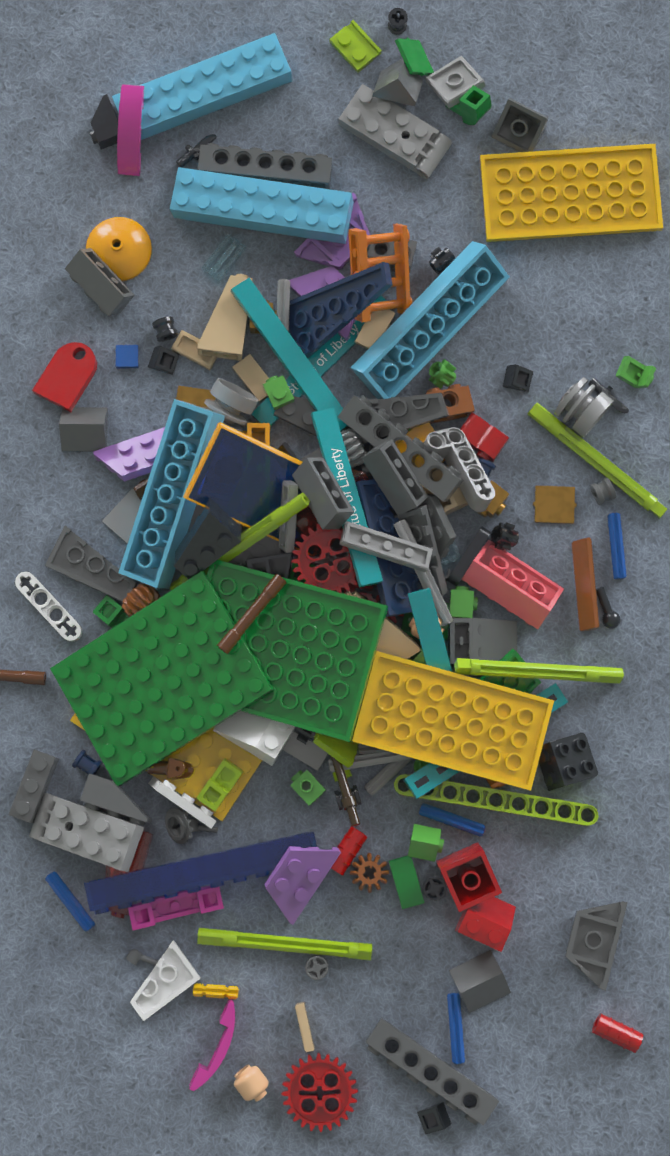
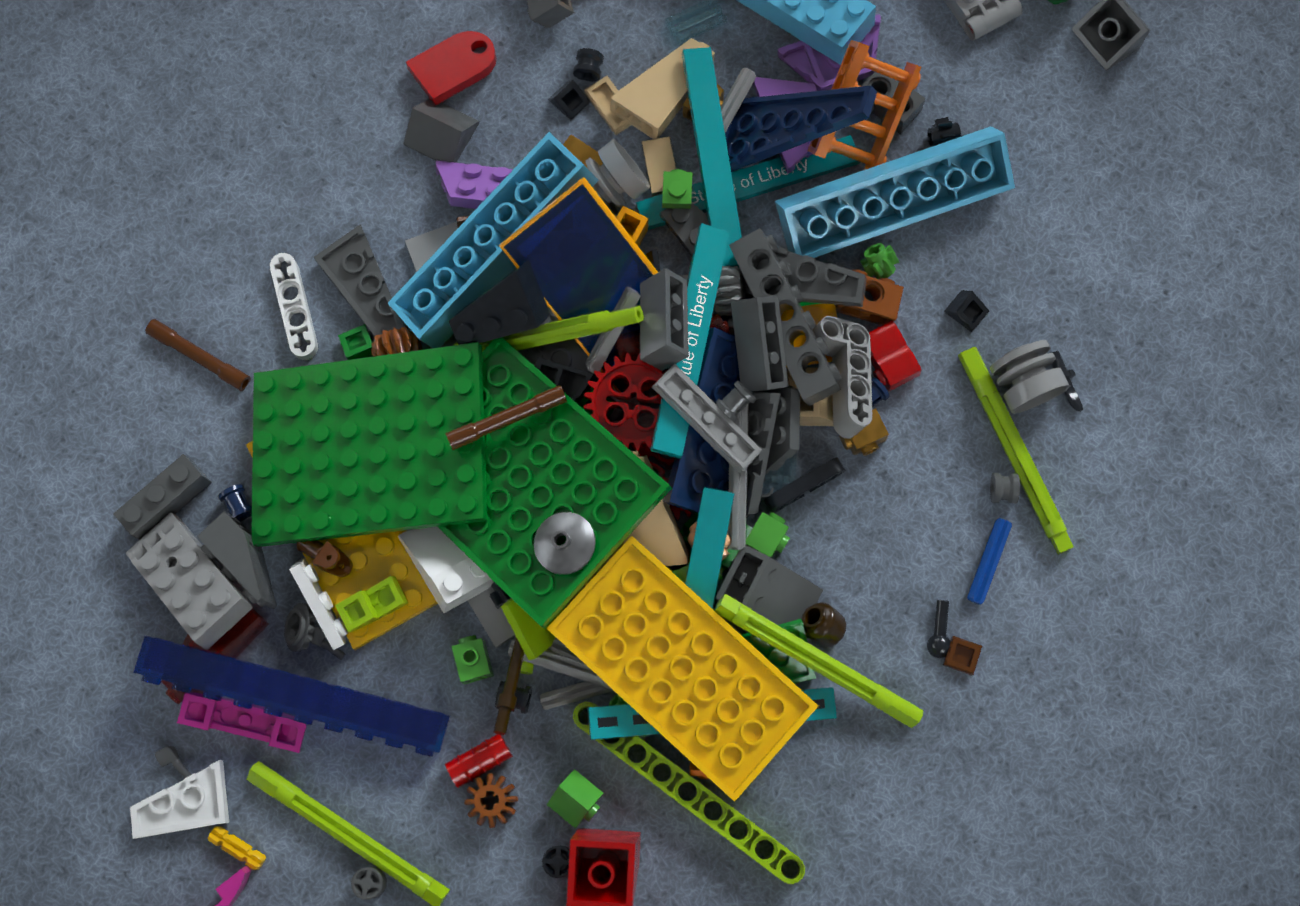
camera: 30 degrees right, 5 degrees down
(70, 901) = (130, 651): blue axle -> none
(127, 356) = (531, 76): blue tile -> none
(299, 877) = (402, 762): medium lavender wing -> none
(347, 678) = (578, 546): none -> flat silver dish
(375, 328) = (827, 170): tan tile -> none
(399, 525) = (735, 401): none -> dark grey bush
(406, 882) = (529, 835): green slope -> none
(452, 819) = (624, 788): blue axle -> none
(504, 536) = (858, 482): black gear -> none
(513, 584) = (840, 543): coral slope -> none
(529, 644) = (823, 625): none -> dark brown head
(554, 504) = (938, 476): pearl gold piece -> none
(567, 761) = (799, 789): black bracket -> none
(571, 192) = (1136, 131): yellow plate -> none
(585, 584) = (928, 588): dark orange slope -> none
(629, 618) = (962, 655): none -> reddish brown tile
(635, 373) = (1112, 369): bright green bracket -> none

